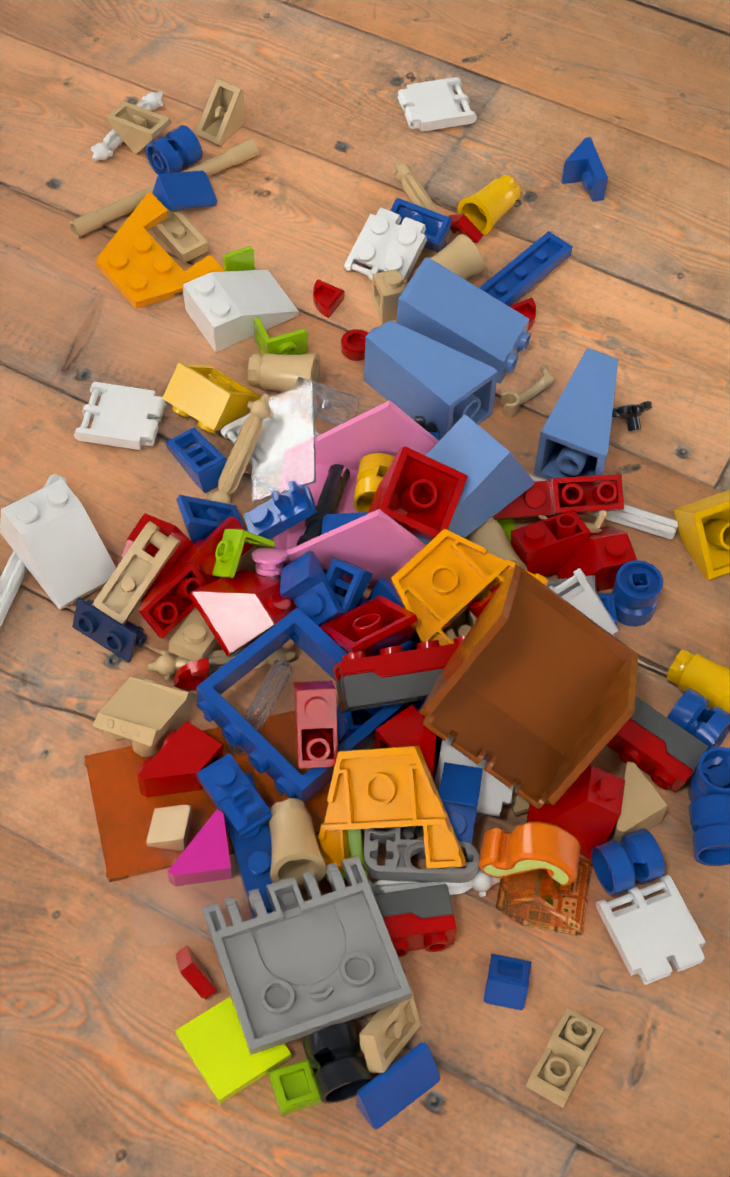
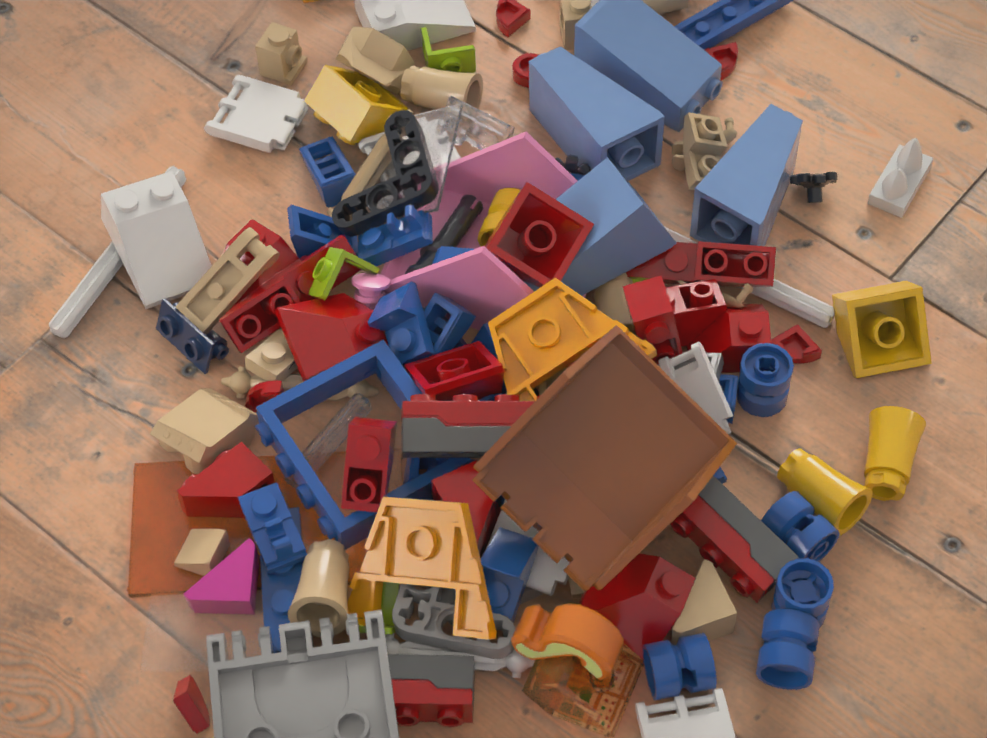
camera: 15 degrees right, 0 degrees up
(128, 358) = (280, 54): none -> tan brick
(218, 350) = (375, 57): none -> tan slope
(281, 457) = (407, 179): none -> black beam
(528, 394) = (702, 146): none -> tan slope
(534, 549) = (653, 316): none -> red slope
(654, 555) = (798, 345): none -> red tile
(703, 399) = (901, 179): none -> white tile

